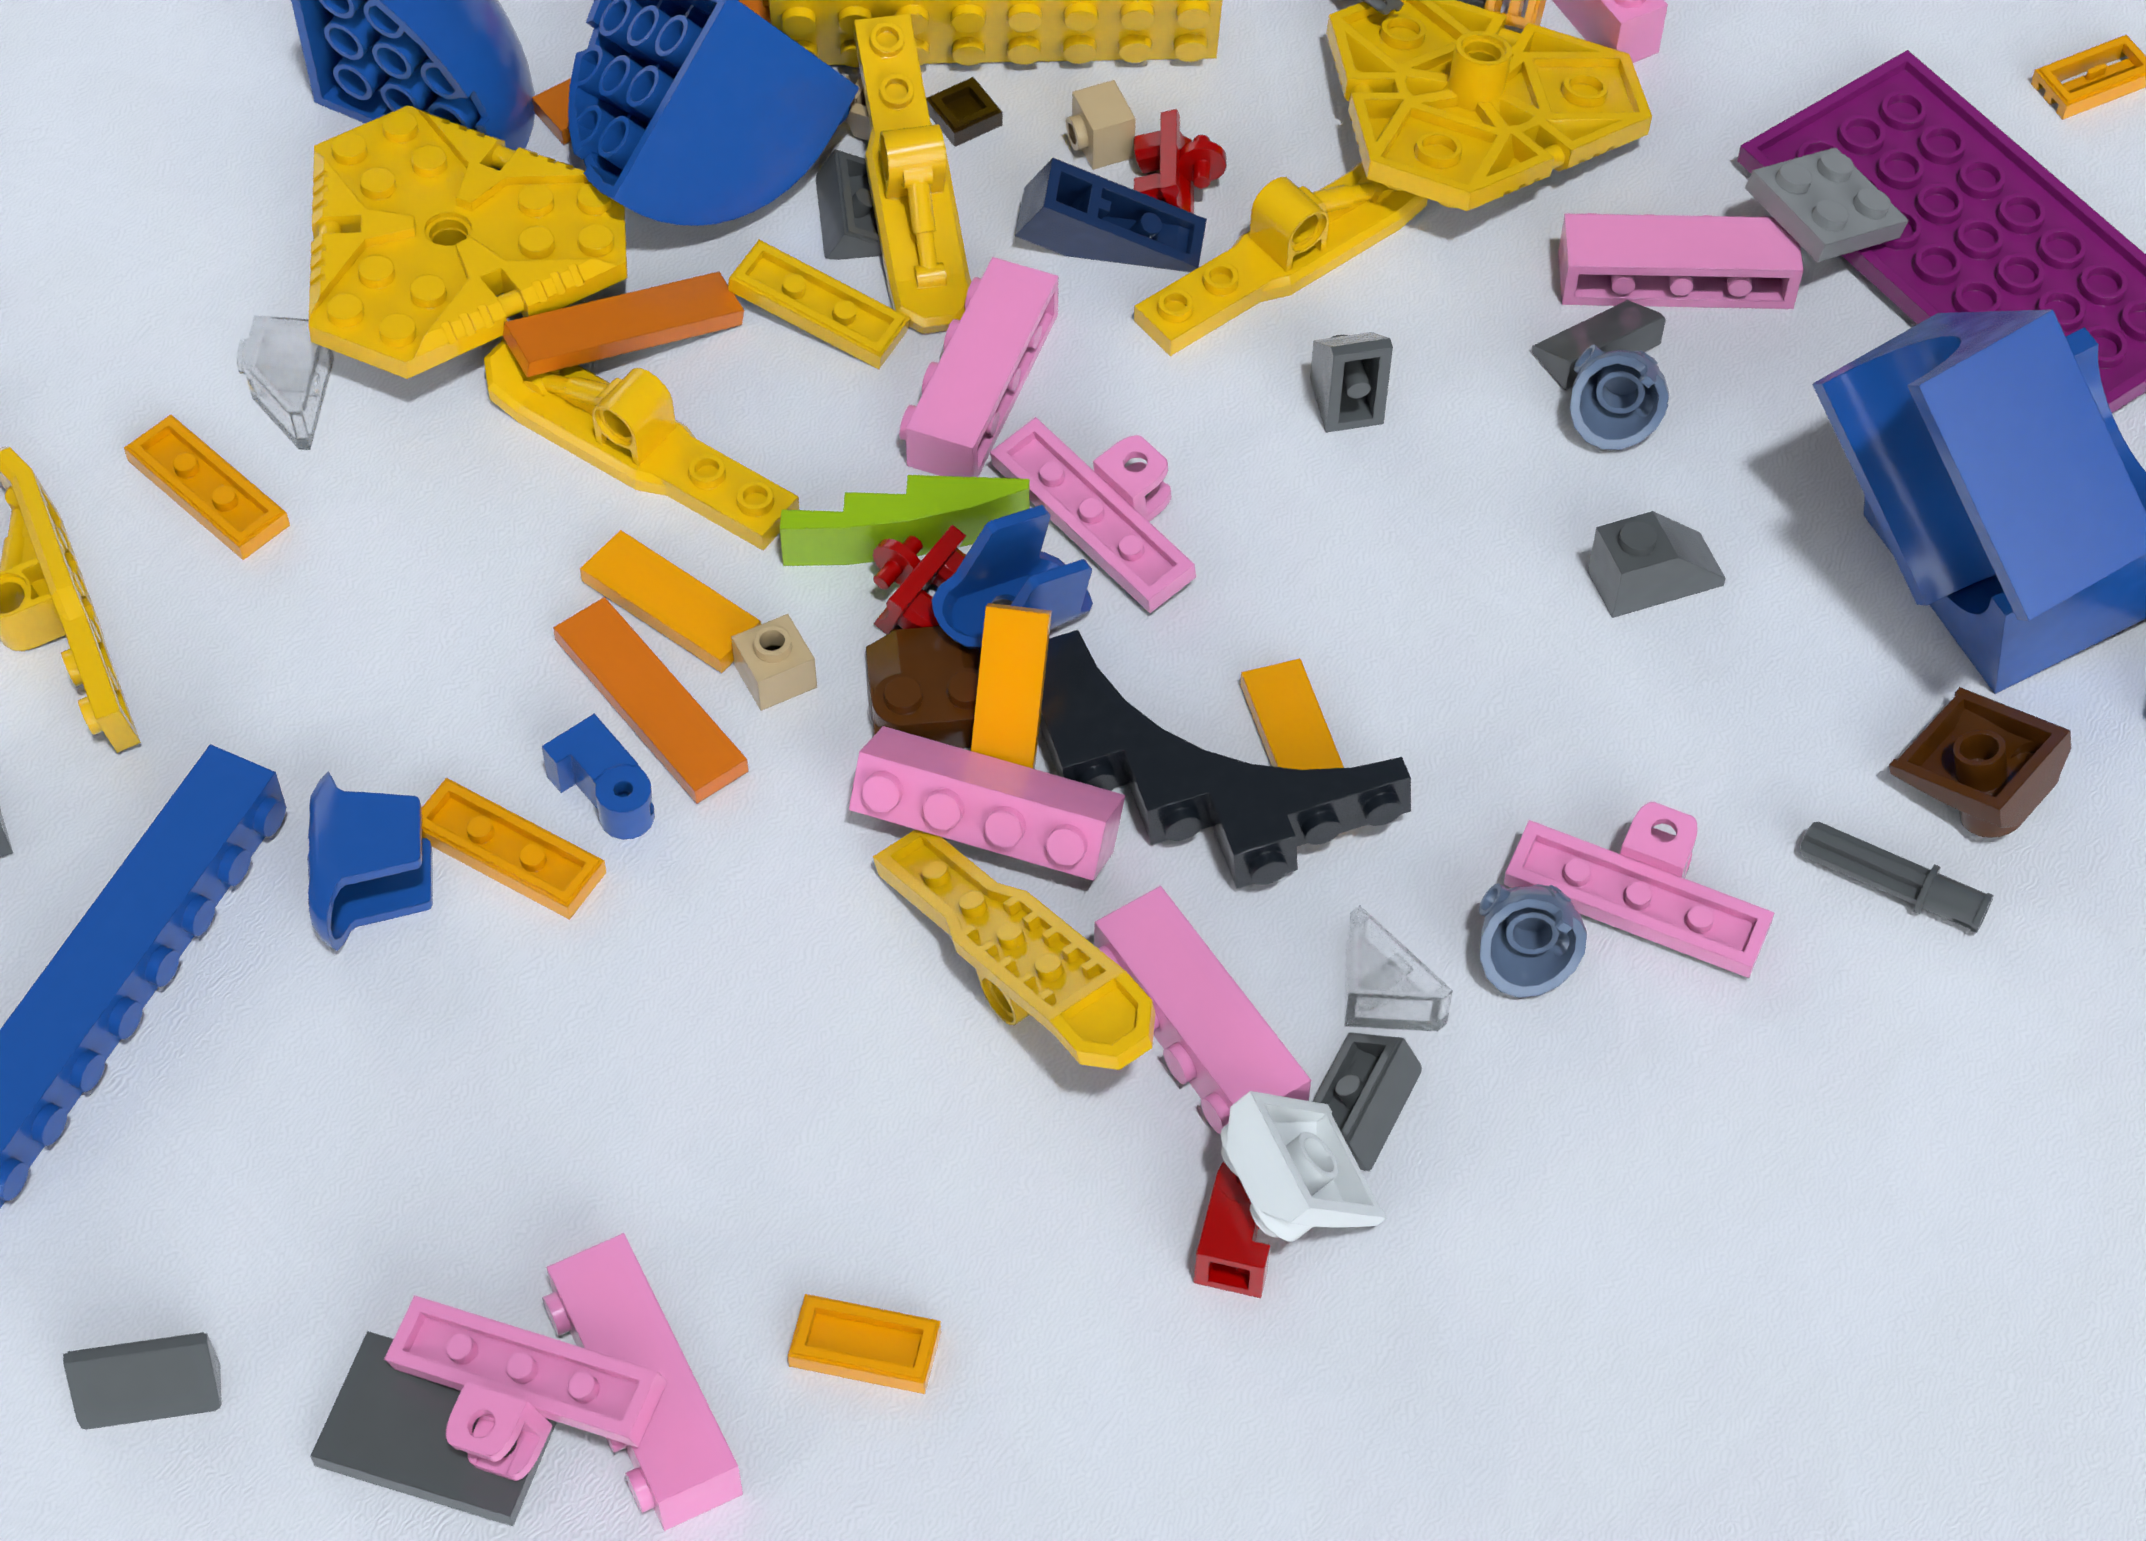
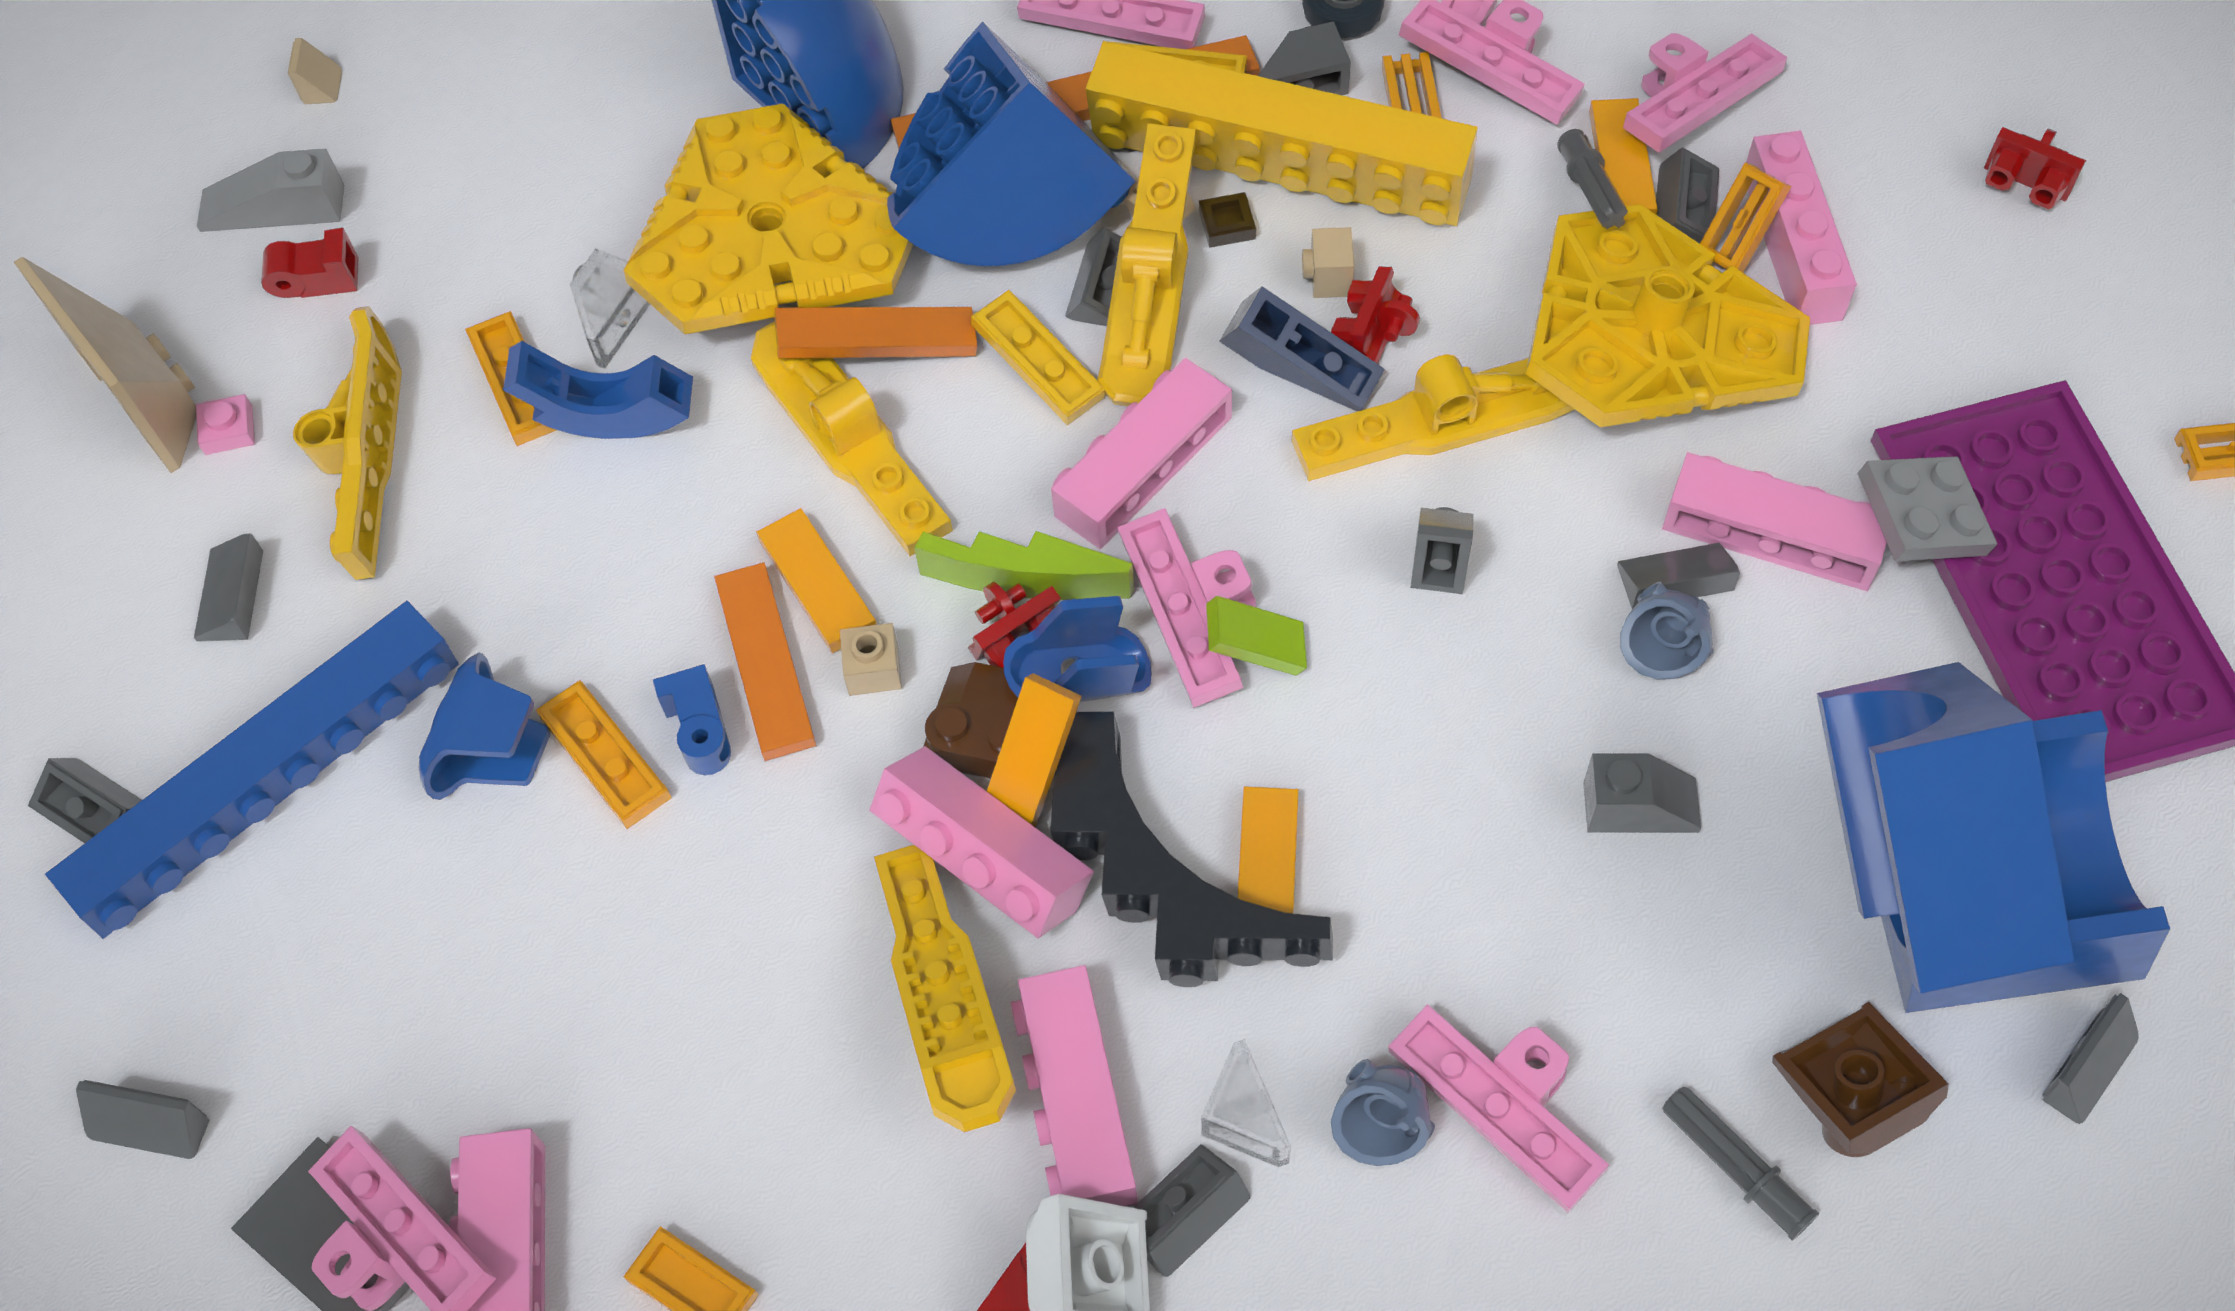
camera: 25 degrees right, 5 degrees up
(339, 482) = (599, 405): none -> blue arch
(1192, 517) = (1256, 635): none -> lime tile

